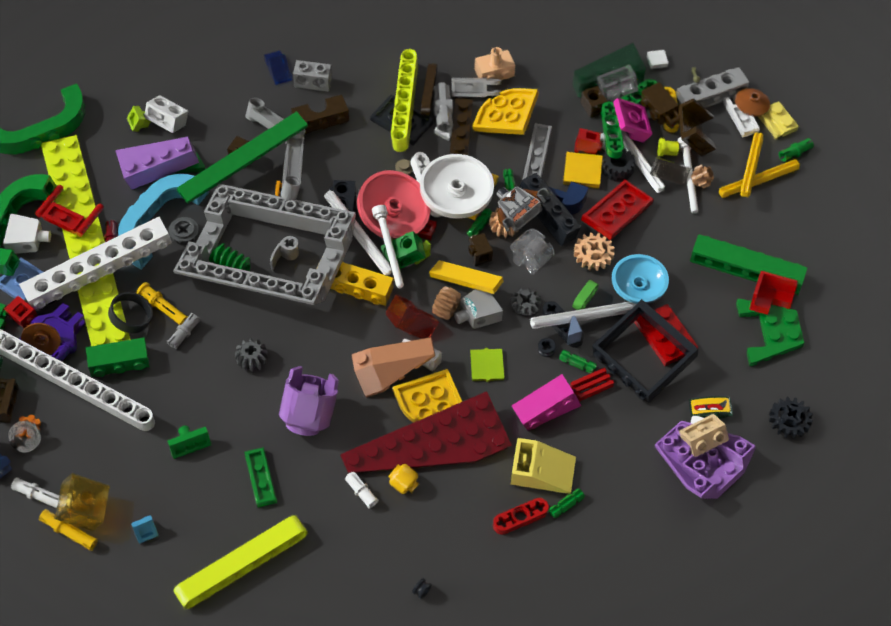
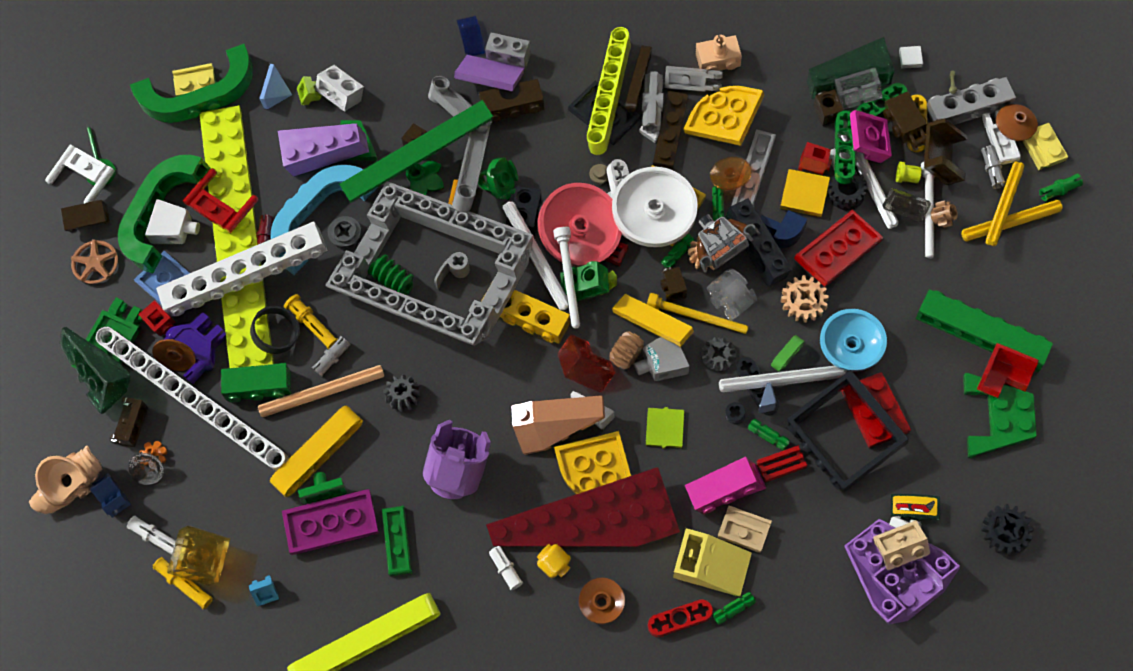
camera: 15 degrees right, 10 degrees up
(31, 115) = (193, 78): none -> light yellow plate
(107, 119) = (274, 89): none -> light blue slope
(177, 360) = (321, 391): none -> light nougat axle
(179, 409) = (316, 451): none -> yellow beam
(198, 466) = (330, 522): none -> magenta plate
(252, 180) = (428, 178): none -> green plate
(298, 93) = (489, 73): none -> medium lavender tile
(319, 175) = (500, 178): none -> green tile
(448, 499) = (601, 589): none -> dark orange dish
(503, 272) = (657, 303): none -> yellow piece
(517, 158) = (730, 173): none -> clear orange dish
(568, 438) = (744, 529): none -> tan plate
(738, 138) = (993, 167): none -> light grey pin

